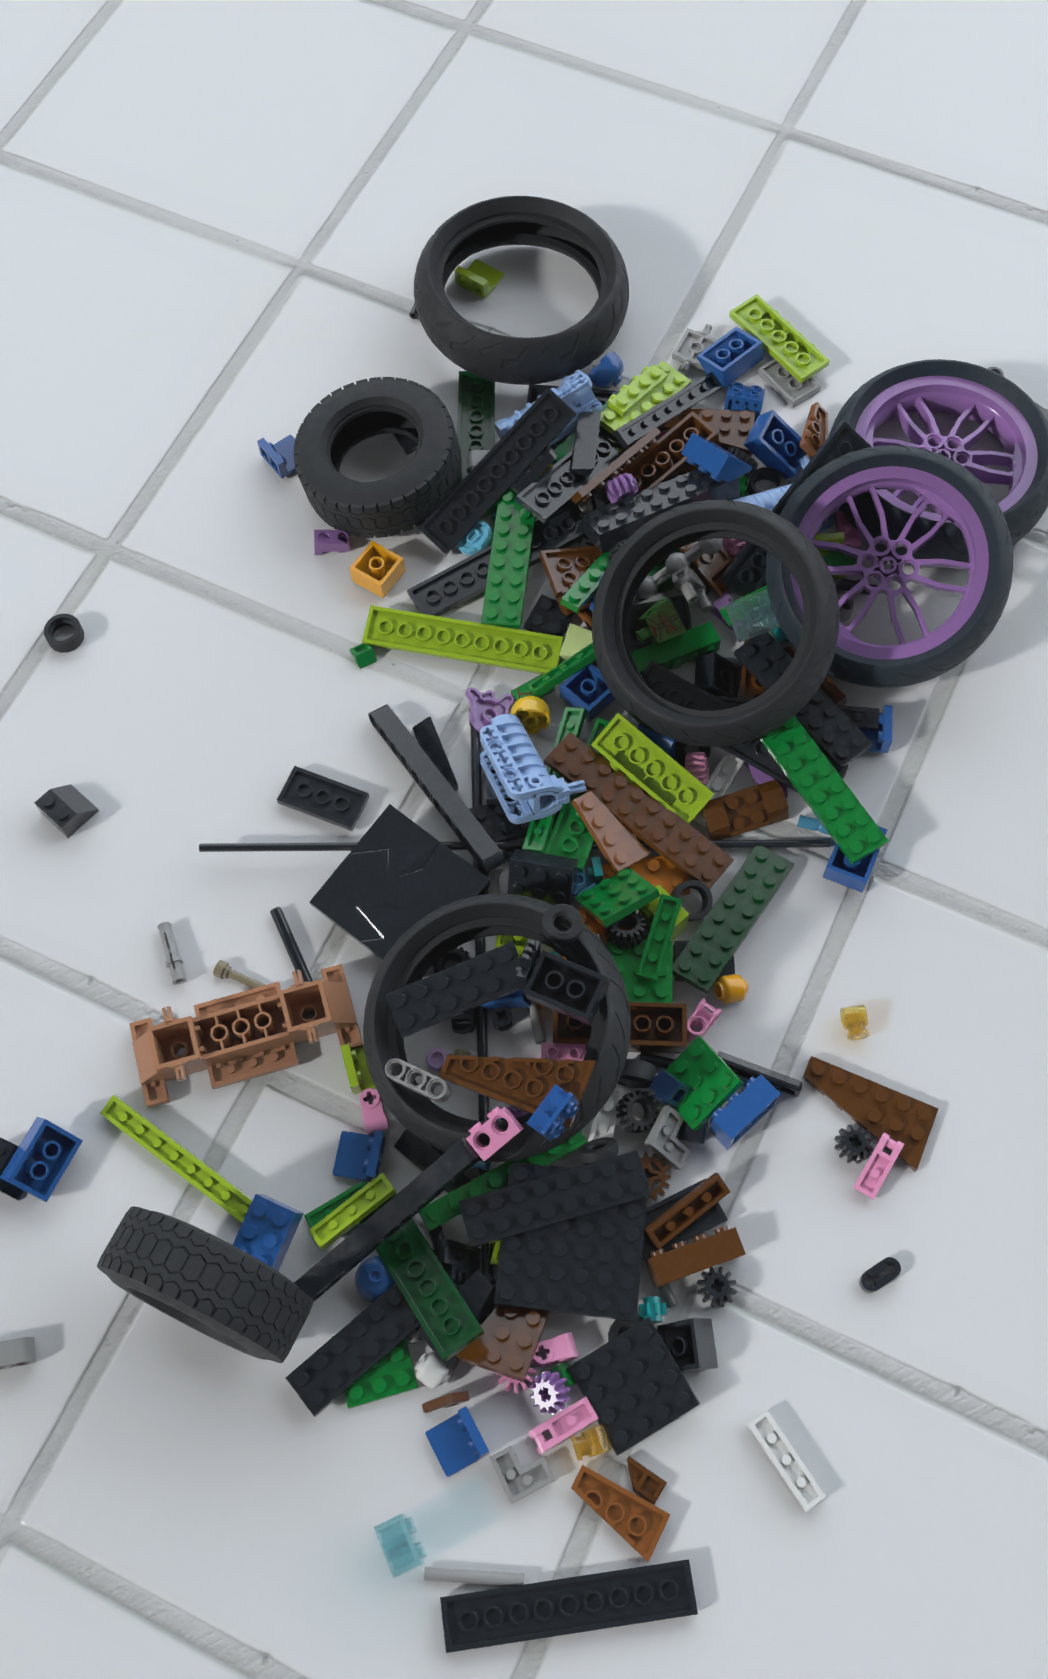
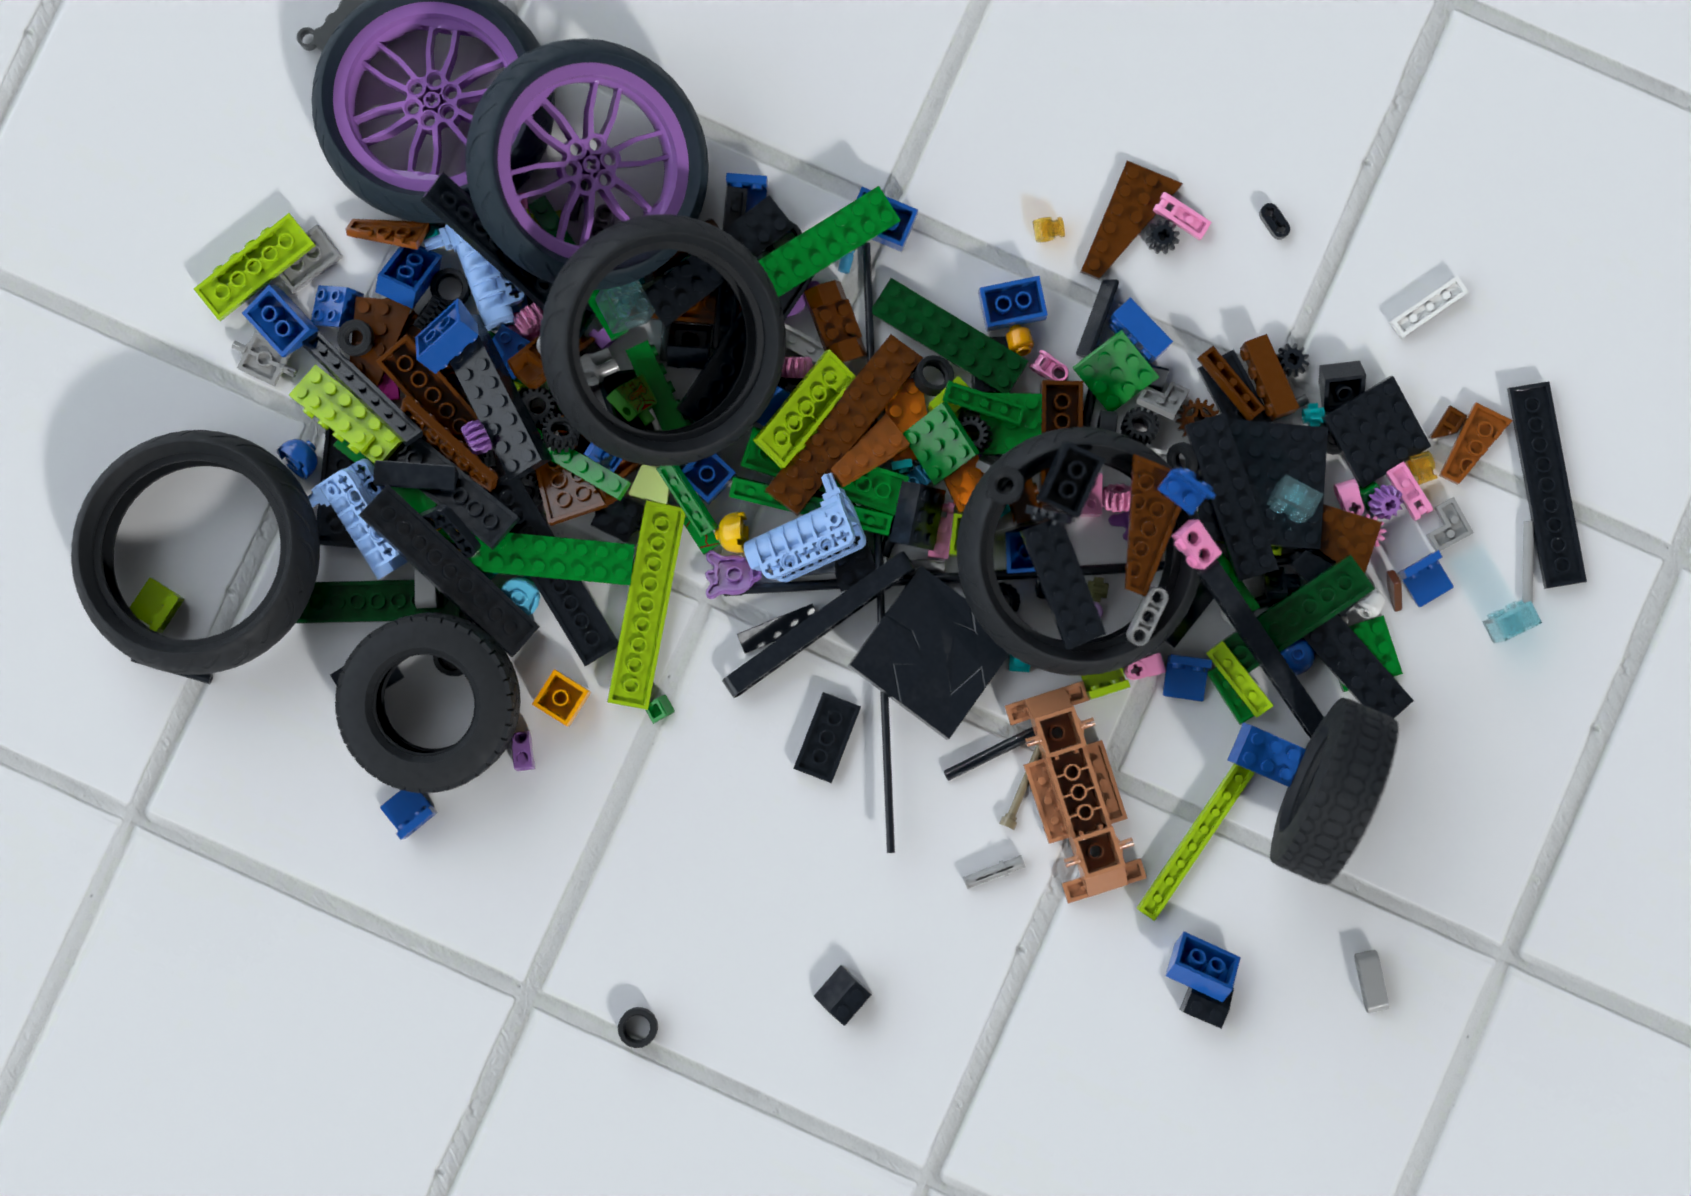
camera: 90 degrees left, 20 degrees up
(549, 1264) = (1294, 499): none -> clear light blue brick
(668, 1088) = (1123, 398): dark blue brick -> none
(716, 416) = (343, 337): none -> black tyre
(770, 980) = (1012, 303): none -> blue brick

